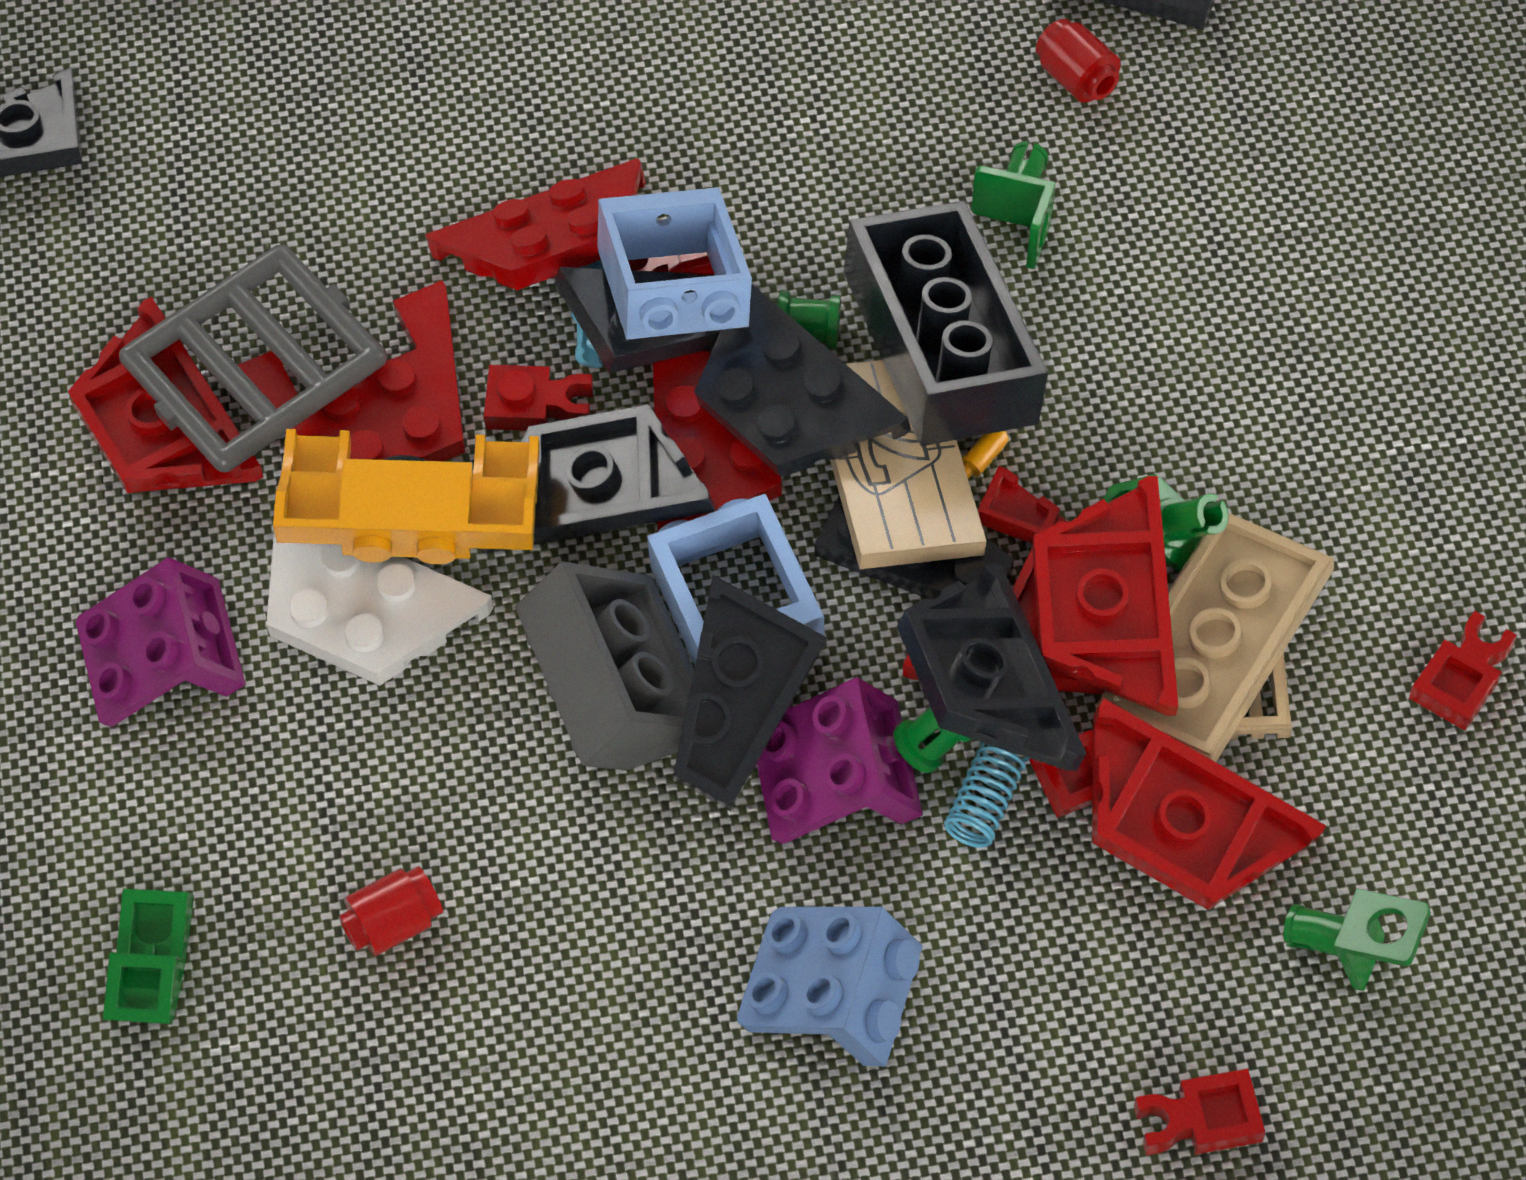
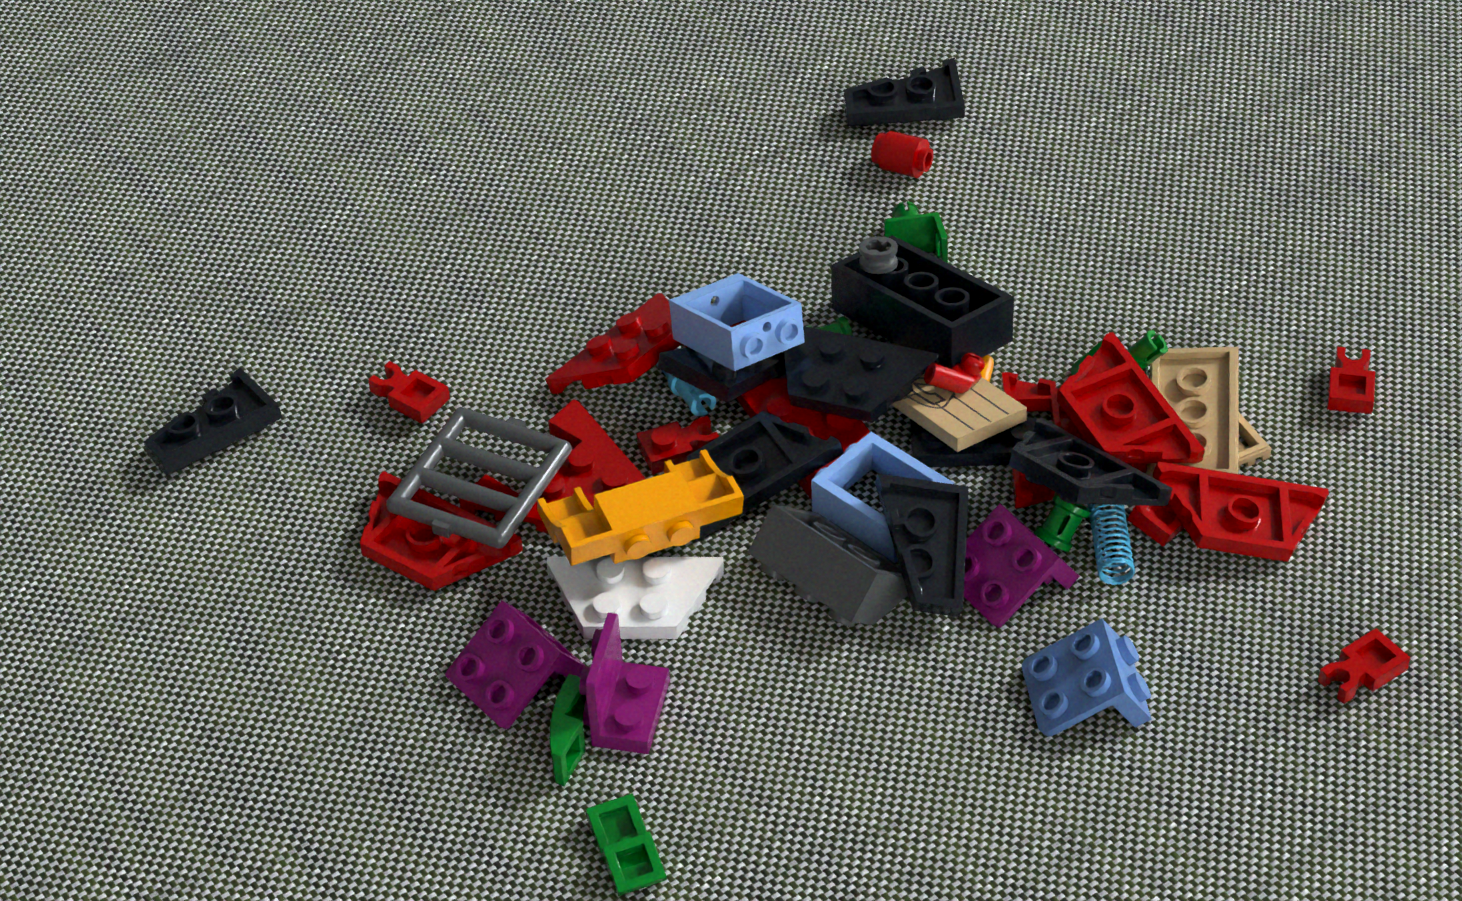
camera: 25 degrees left, 15 degrees down
(151, 780) = (566, 730): none -> green slope
(250, 742) = (621, 695): none -> magenta bracket
(251, 191) = (411, 395): none -> red plate
(390, 910) = (776, 752): red brick -> none
(910, 247) = (878, 255): none -> dark grey bush
(921, 460) = (958, 378): none -> red arm
(1358, 935) = (1387, 535): green bracket -> none

